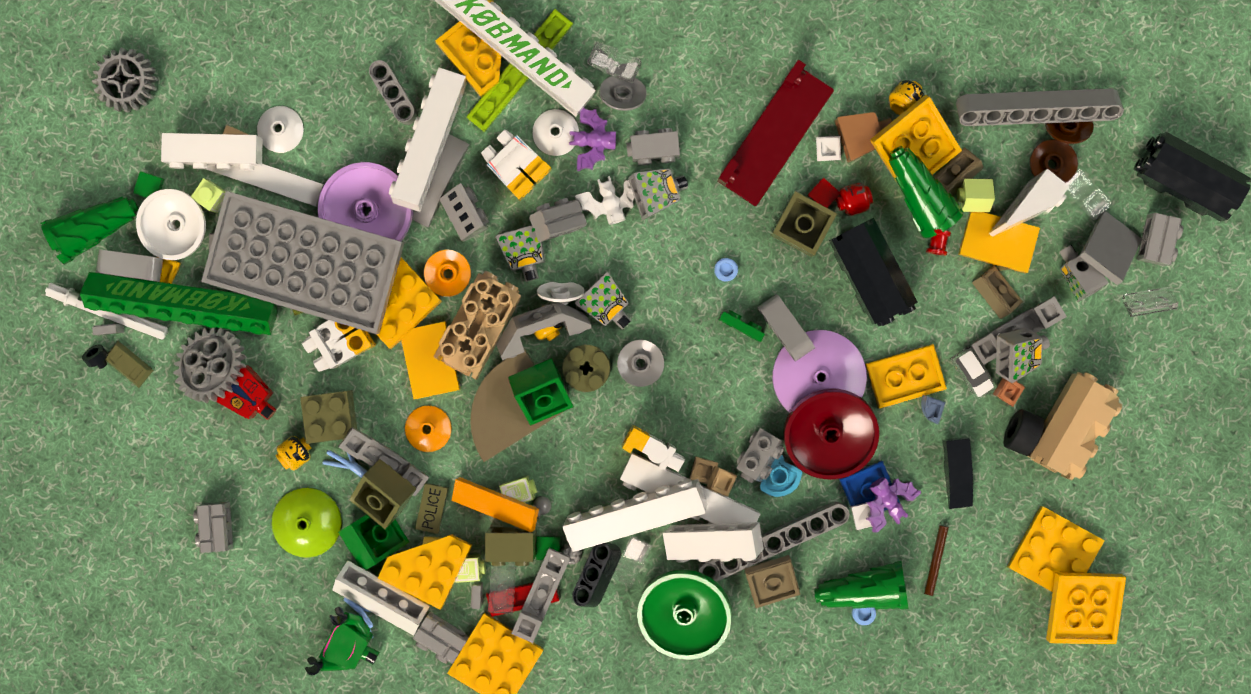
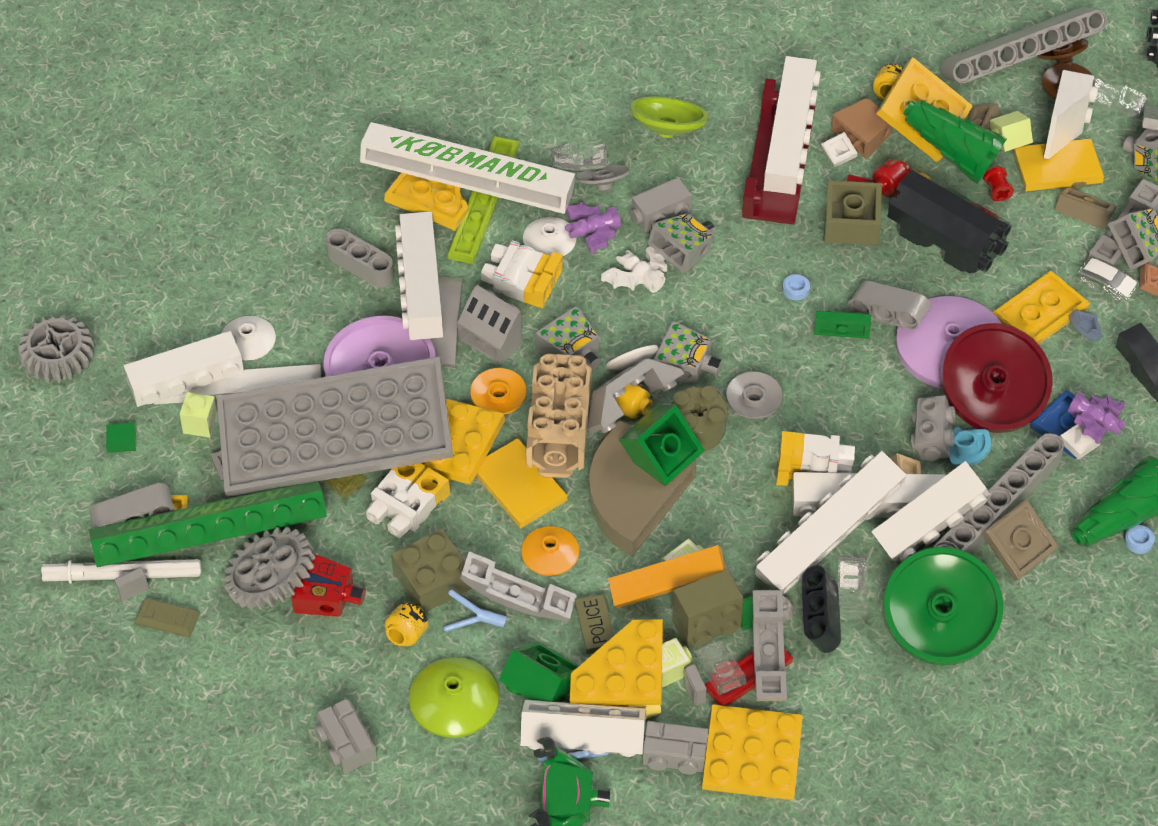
camera: 25 degrees left, 35 degrees down
(86, 228) = (65, 492): green cone -> none
(95, 356) = (127, 617): black tile -> none
(157, 224) = (161, 438): white dish -> none
(382, 493) = (533, 613): olive brick -> none
(558, 219) = (595, 295): light grey brick -> none
(704, 55) = (668, 115): none -> lime dish
(798, 111) = (790, 125): none -> white brick

